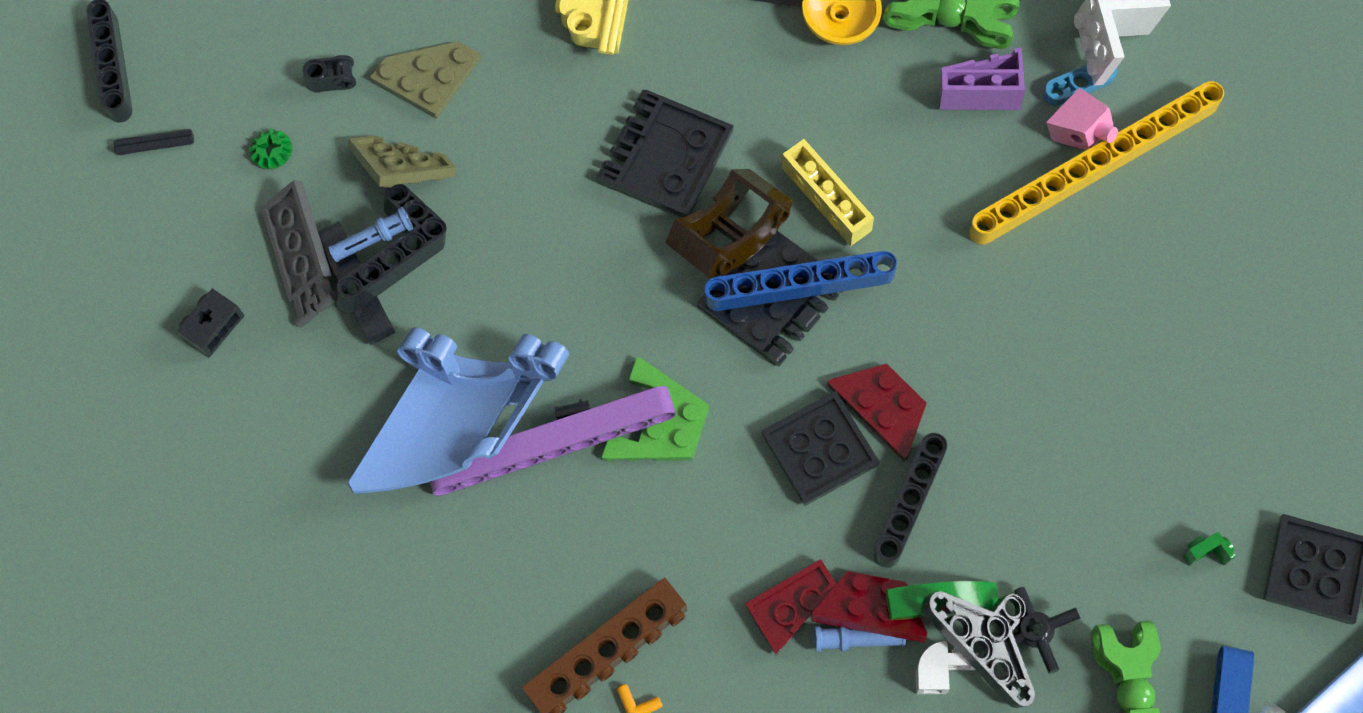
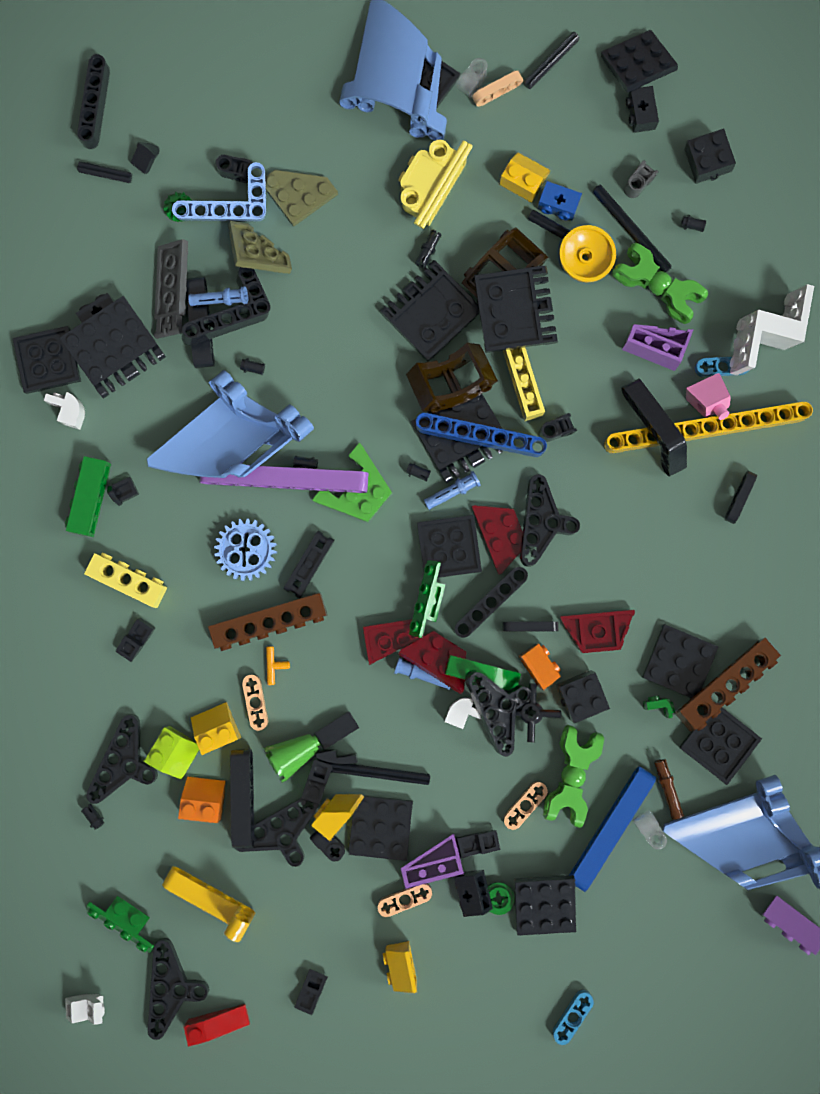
camera: 20 degrees right, 15 degrees up
(154, 411) = (45, 361): none -> black plate
(202, 103) = (145, 156): none -> black tile
(213, 465) = (71, 411): none -> white brick
(240, 353) = (111, 343): none -> black hinge
(279, 573) = (88, 496): none -> green brick
(326, 548) = (122, 491): none -> black tile
(330, 659) = (97, 571): none -> light yellow brick
(339, 120) = (229, 206): none -> light blue beam
(449, 313) = (251, 366): none -> black pin
(558, 553) = (228, 548): none -> light blue gear
(629, 79) = (428, 249): none -> black pin
(632, 547) = (309, 564): none -> black plate
(734, 364) = (418, 471): none -> black pin
(753, 33) = (519, 244): none -> dark brown window
(778, 105) = (512, 311): none -> black hinge
(800, 362) = (460, 486): none -> medium blue pin
(822, 528) = (428, 599): none -> green bracket
(902, 234) = (560, 427): none -> black piece
(931, 350) = (542, 531): none -> black beam
(980, 511) = (529, 626): none -> black beam
(1017, 559) = (539, 666): none -> orange slope
(1037, 178) = (659, 425): none -> black beam
(1076, 480) = (598, 630): none -> dark red wing
(1097, 578) = (582, 696): none -> black brick
(1183, 233) = (740, 497): none -> black beam
(1208, 481) = (680, 661): none -> black plate
(1255, 540) = (688, 712): none -> reddish brown brick
(1283, 668) = (667, 784): none -> reddish brown pin

